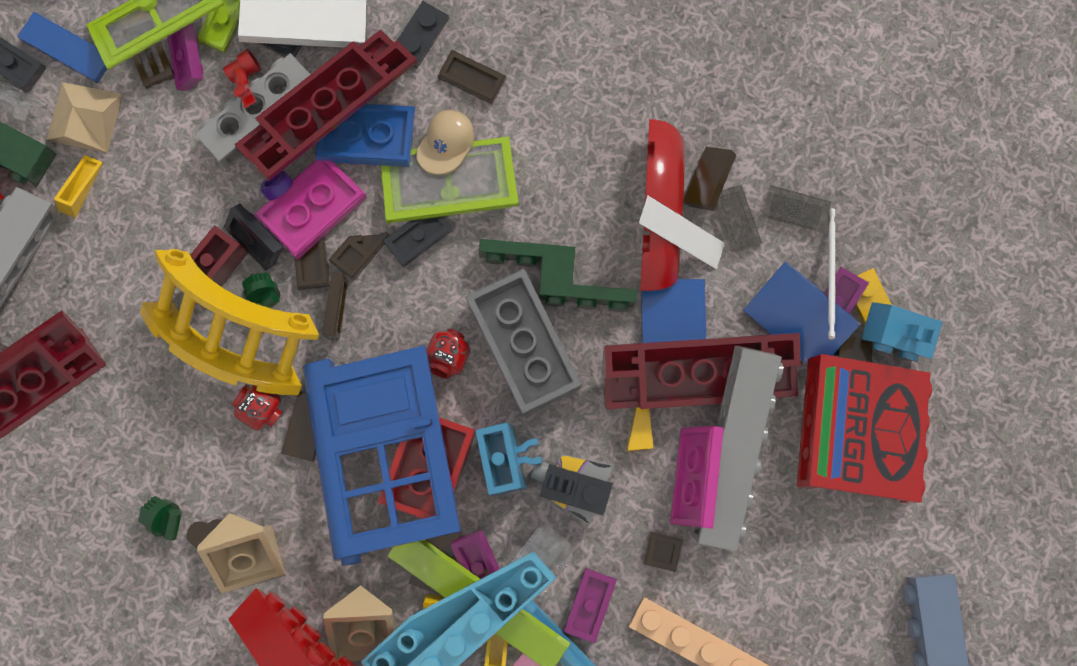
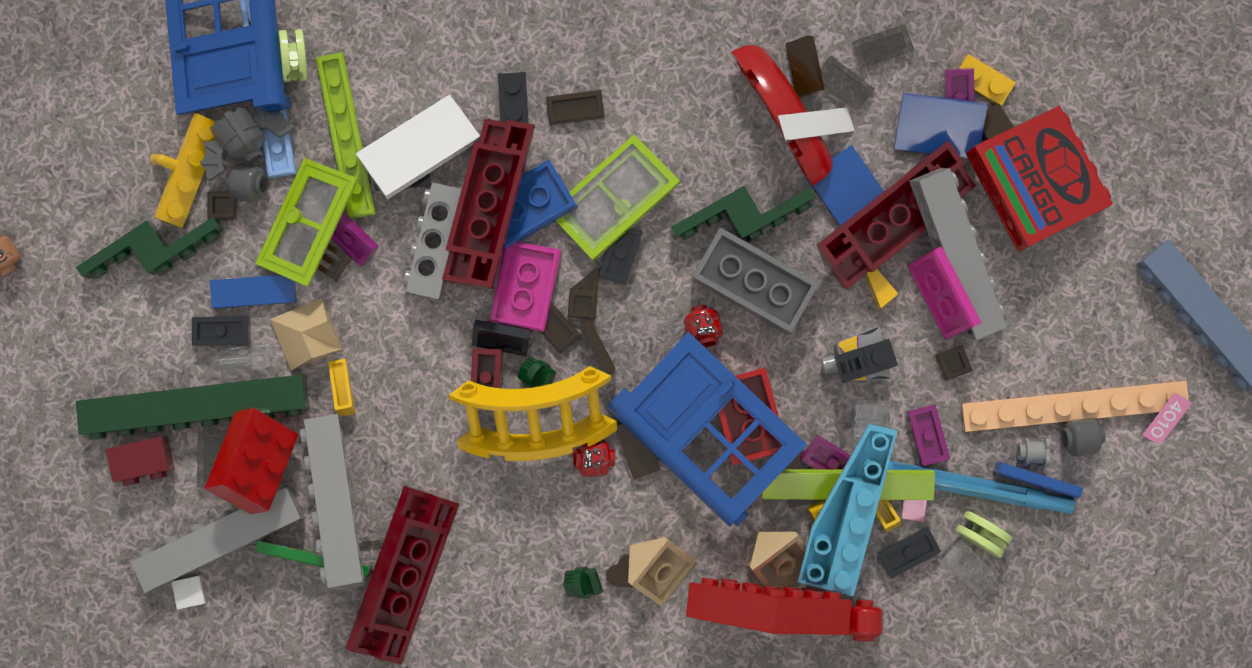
camera: 30 degrees left, 5 degrees up
(237, 73) = (400, 221): red brick -> none
(276, 186) = (491, 295): dark purple tile -> none
(445, 143) = (592, 171): tan cap -> none
(502, 458) = (797, 374): dark azure brick -> none
(831, 296) = (941, 78): white piece -> none
(901, 330) = (1020, 88): dark azure brick -> none

